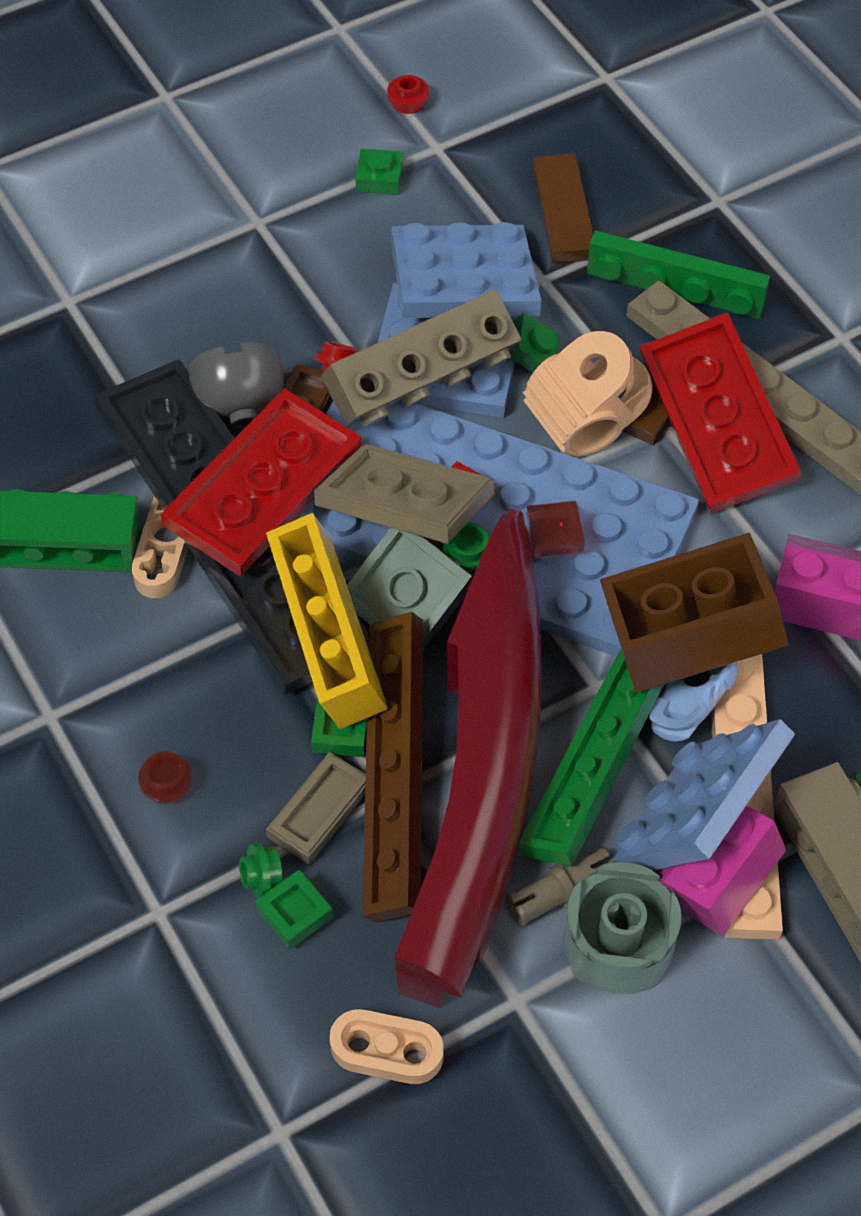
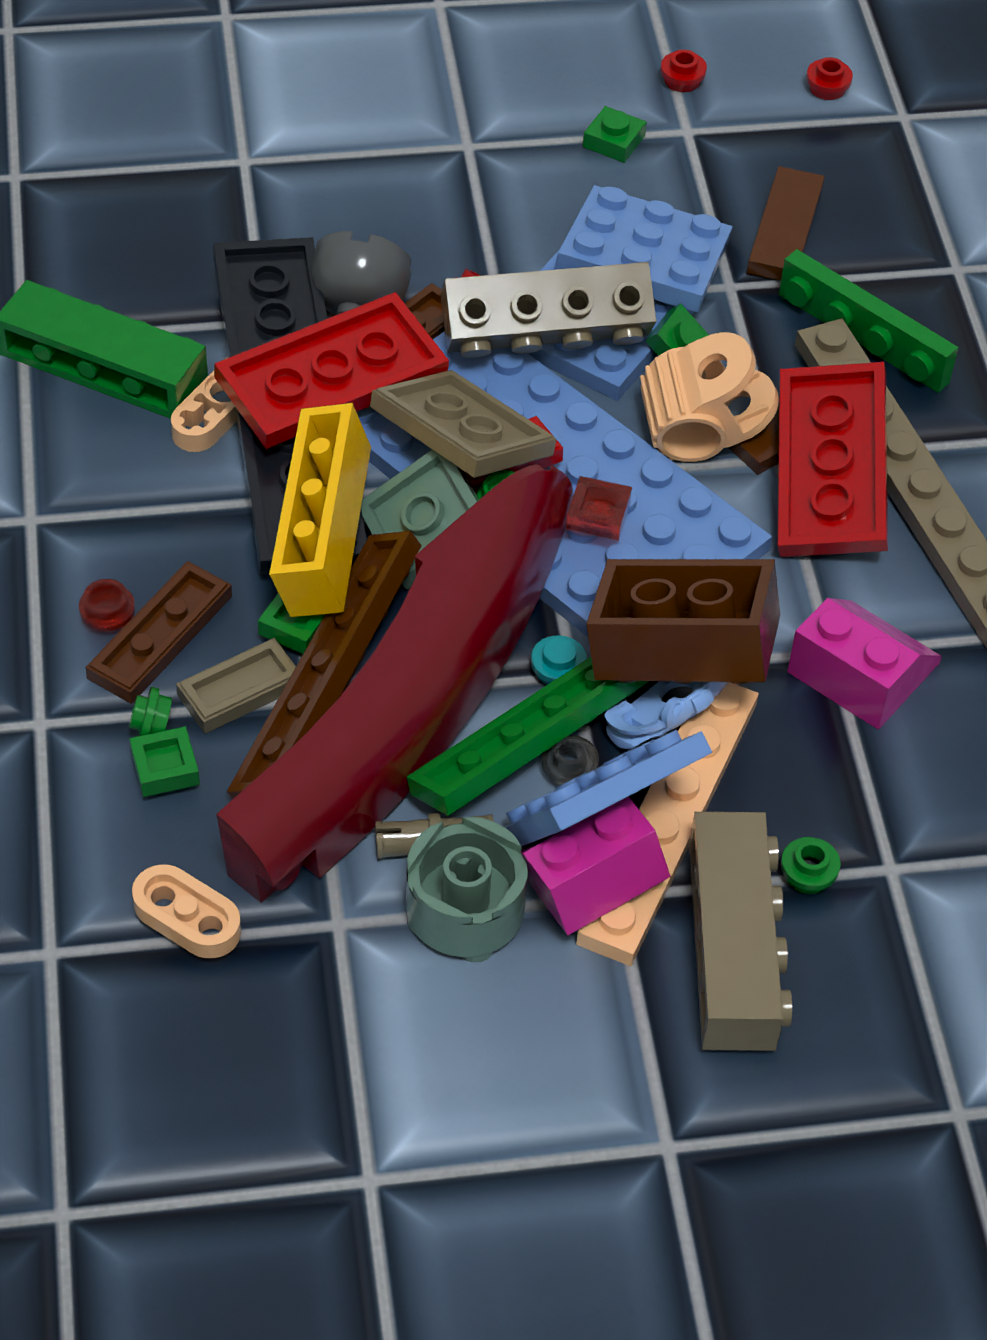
camera: 20 degrees right, 5 degrees down
(222, 784) = (159, 632): none -> reddish brown tile
(531, 62) = (829, 78): none -> red plate
(580, 679) = (555, 657): none -> teal plate
(641, 783) = (562, 770): none -> clear smoke plate

